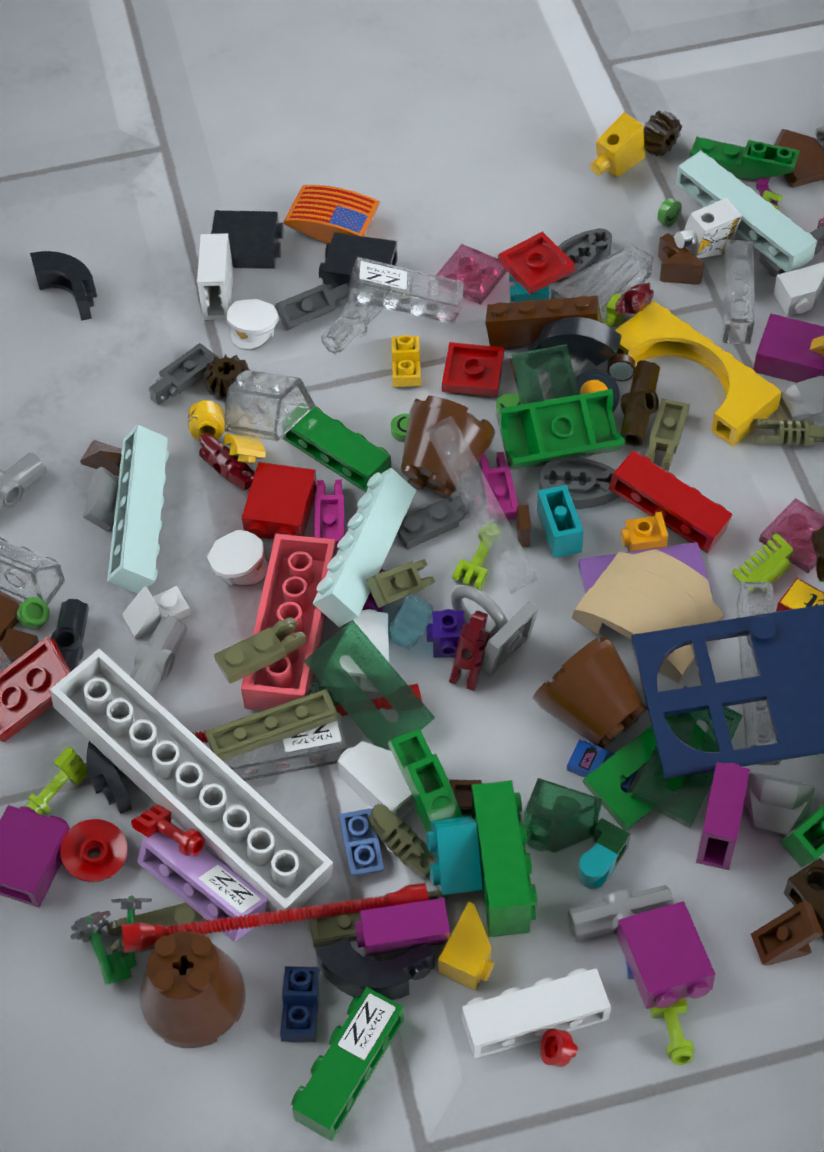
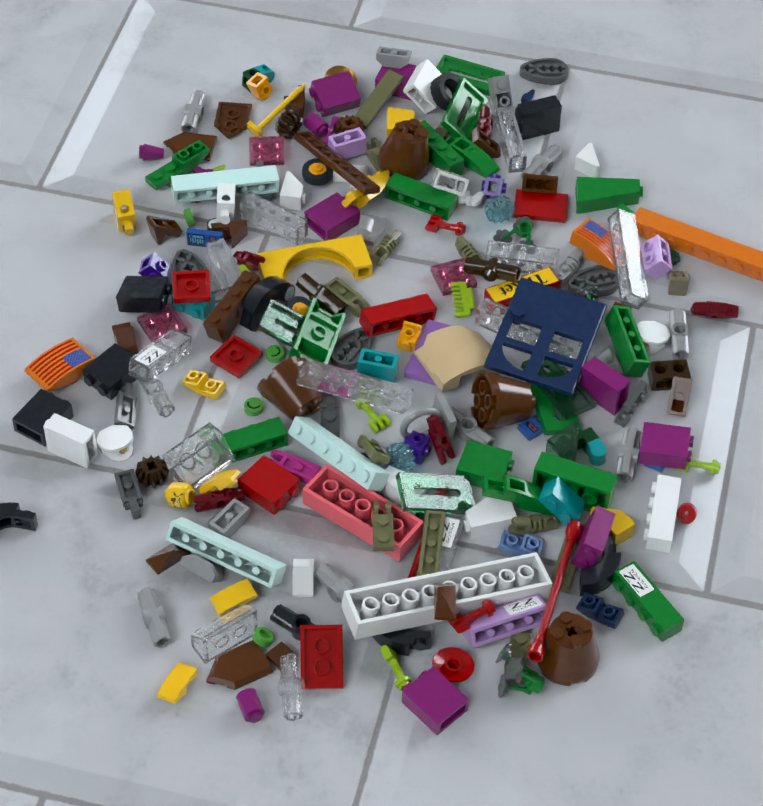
camera: 65 degrees left, 5 degrees down
(79, 552) = (233, 596): none -> yellow slope
(153, 775) = (444, 602): none -> reddish brown slope
(198, 489) = (229, 518): none -> light grey slope
(239, 558) = (295, 519): white hat -> none
(423, 251) = (125, 337): none -> reddish brown slope
(470, 731) = (484, 460): none -> green brick
(495, 226) = (143, 294): none -> black brick
(520, 693) = (469, 430): none -> light grey piece
(551, 219) = (153, 266): none -> dark purple brick
(623, 190) = (160, 227): none -> reddish brown slope
(646, 241) = (199, 237): none -> tile
(661, 133) = (130, 182): dark brown gear -> none
(722, 872) = (631, 404): none -> dark grey hinge
(748, 124) = (150, 152): none -> magenta cone

